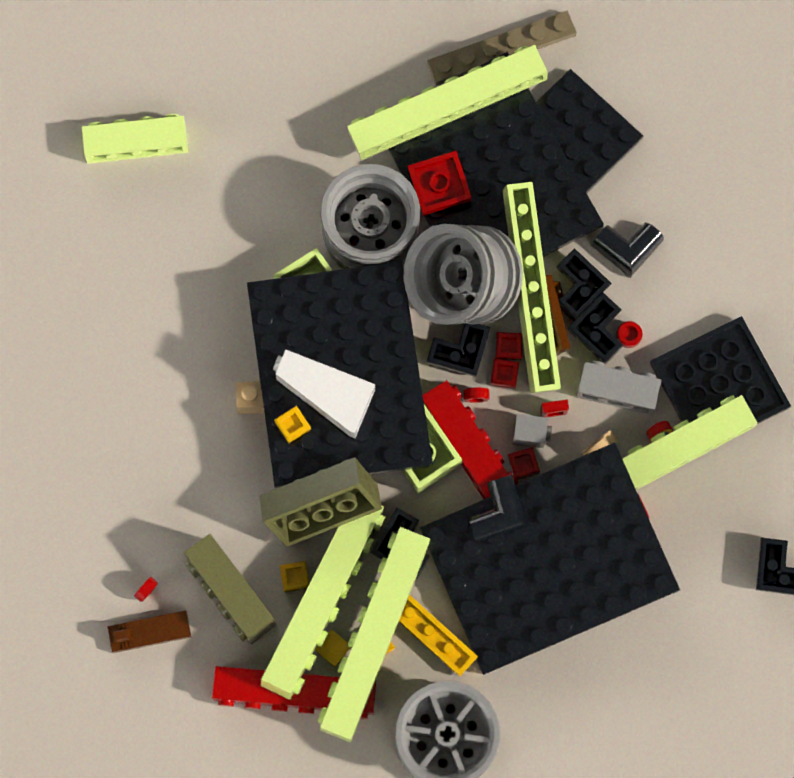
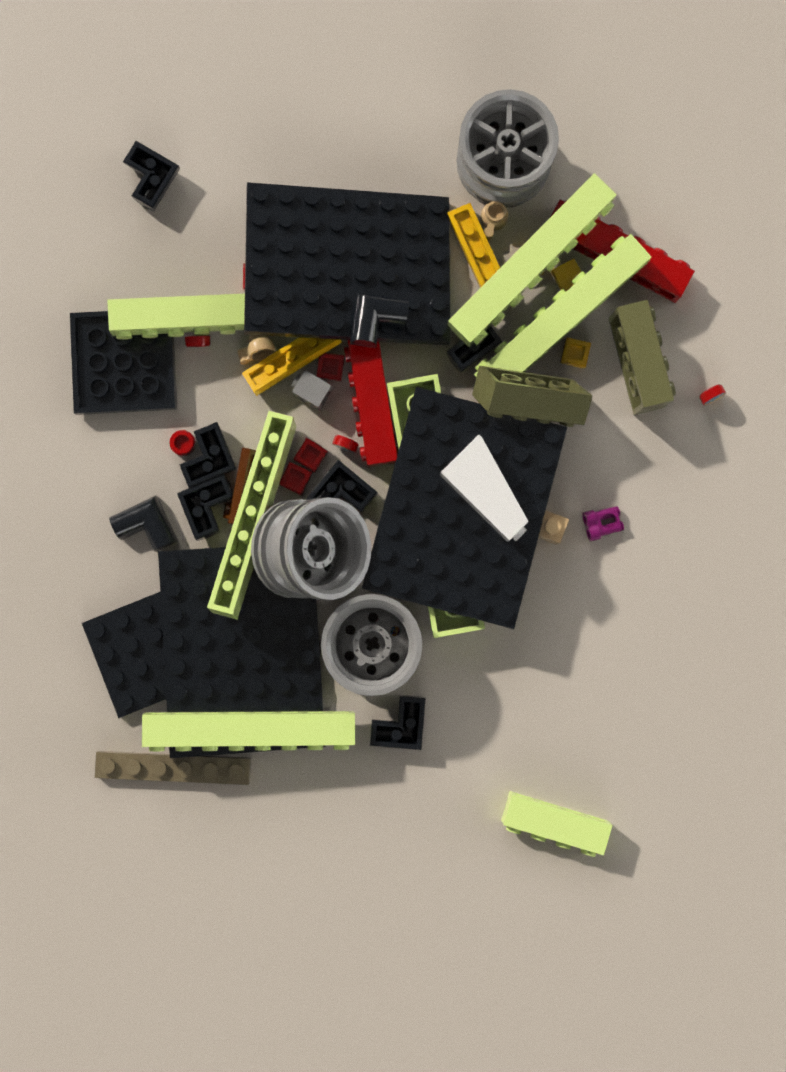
camera: 150 degrees left, 10 degrees up
(149, 631) = (722, 358): reddish brown hinge -> none
(210, 419) = (593, 524): none -> magenta piece
(292, 424) = (529, 473): yellow tile -> none
(305, 163) = (405, 732): none -> black brick
(430, 672) = (493, 218): none -> tan piece
(439, 183) = (291, 653): red plate -> none
(554, 408) = (281, 401): red tile -> none
(571, 440) = (286, 362): none -> yellow plate
(619, 387) = (214, 396): light grey brick -> none

